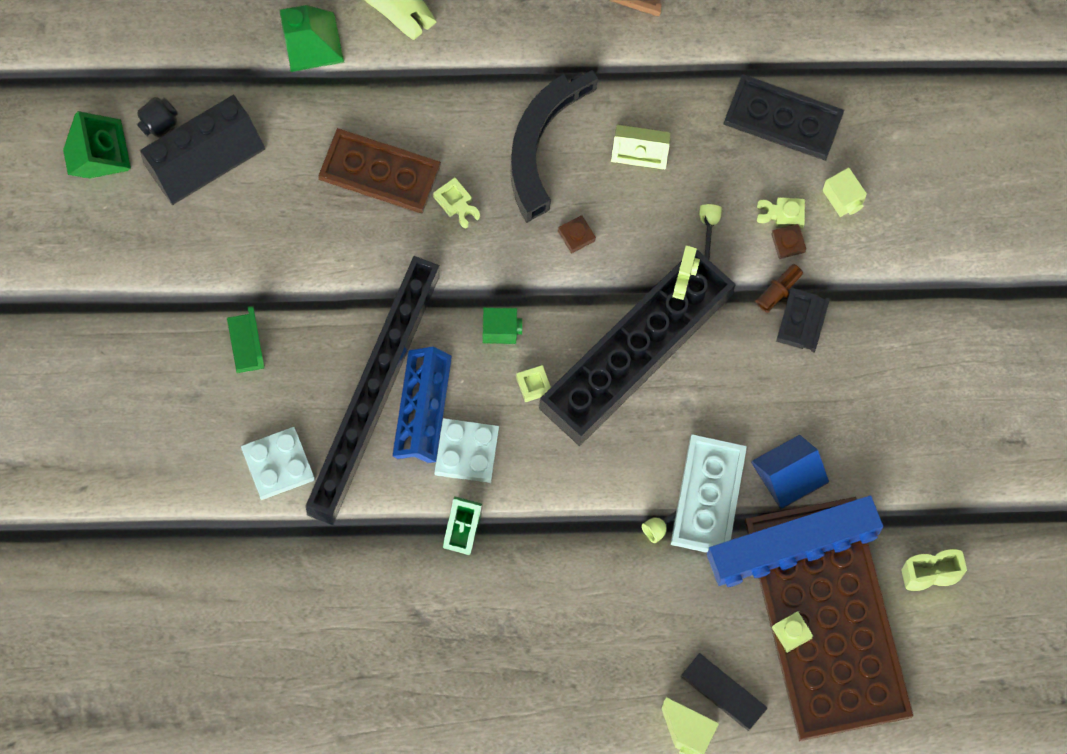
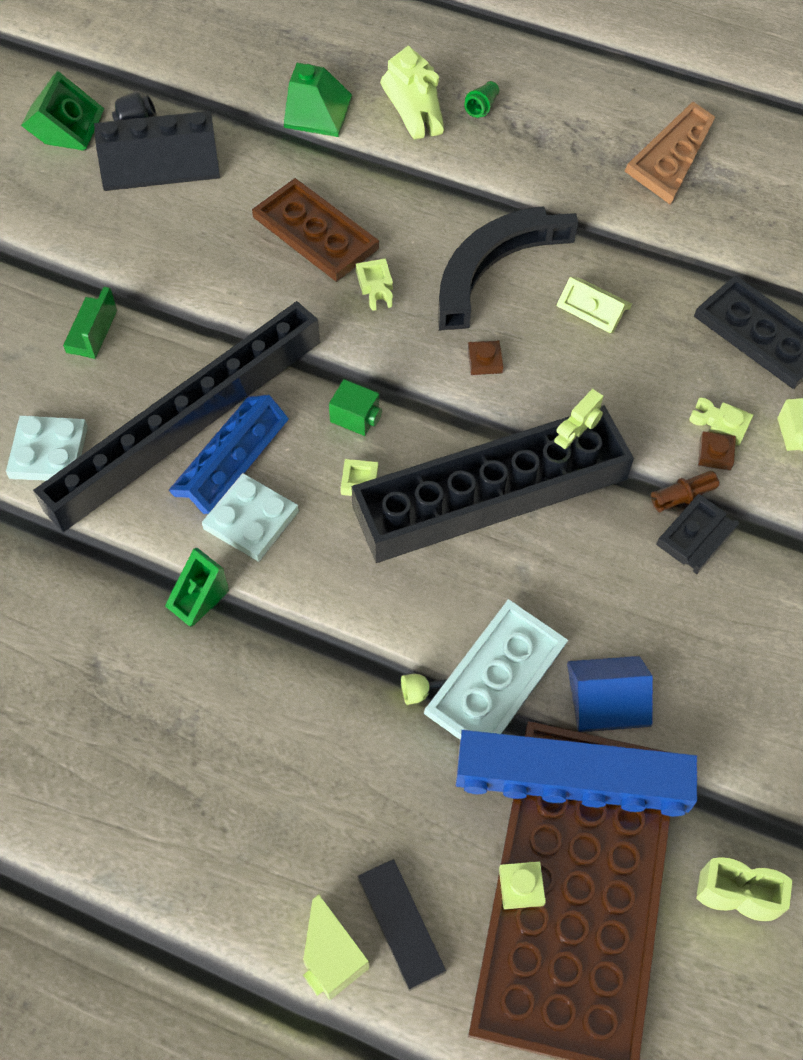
camera: 30 degrees right, 10 degrees down
(710, 216) = (638, 391): yellowish green hinge -> none

